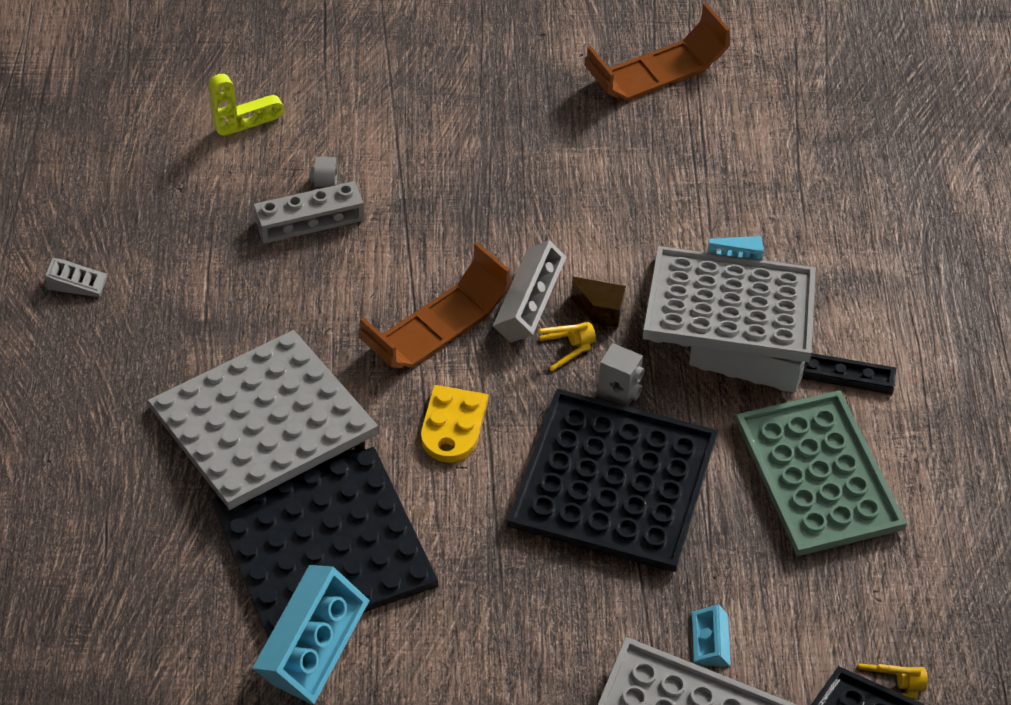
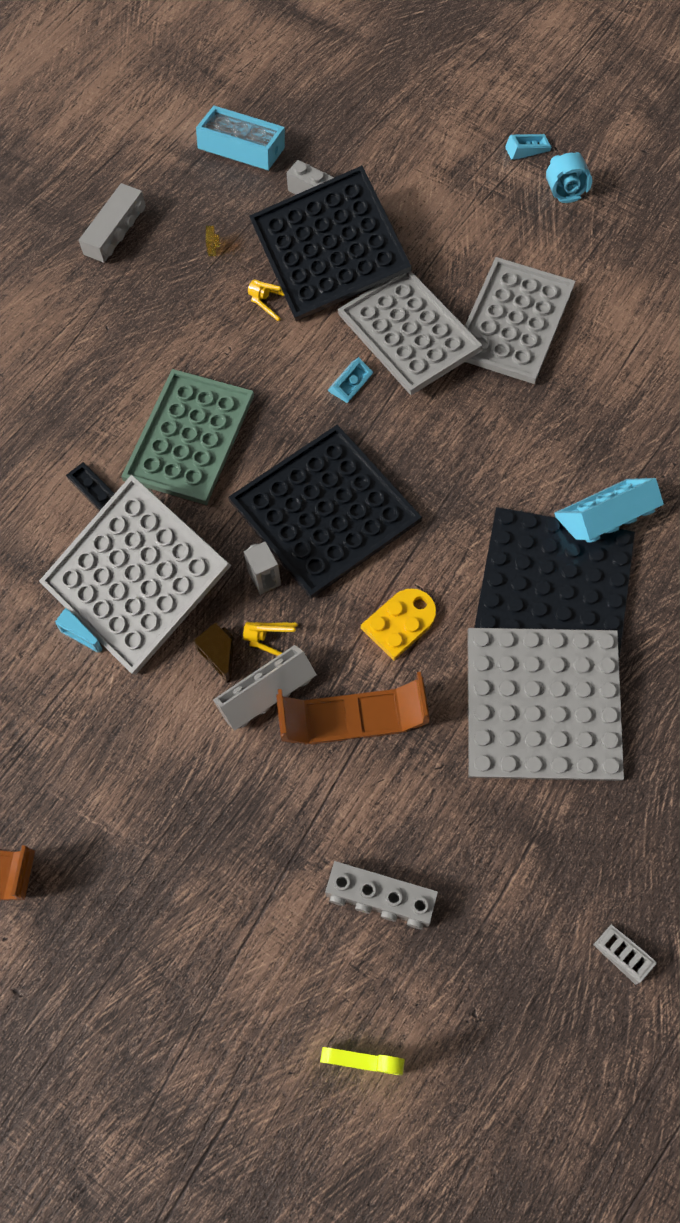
camera: 140 degrees left, 15 degrees up
(325, 172) = (338, 933): light grey plate -> none

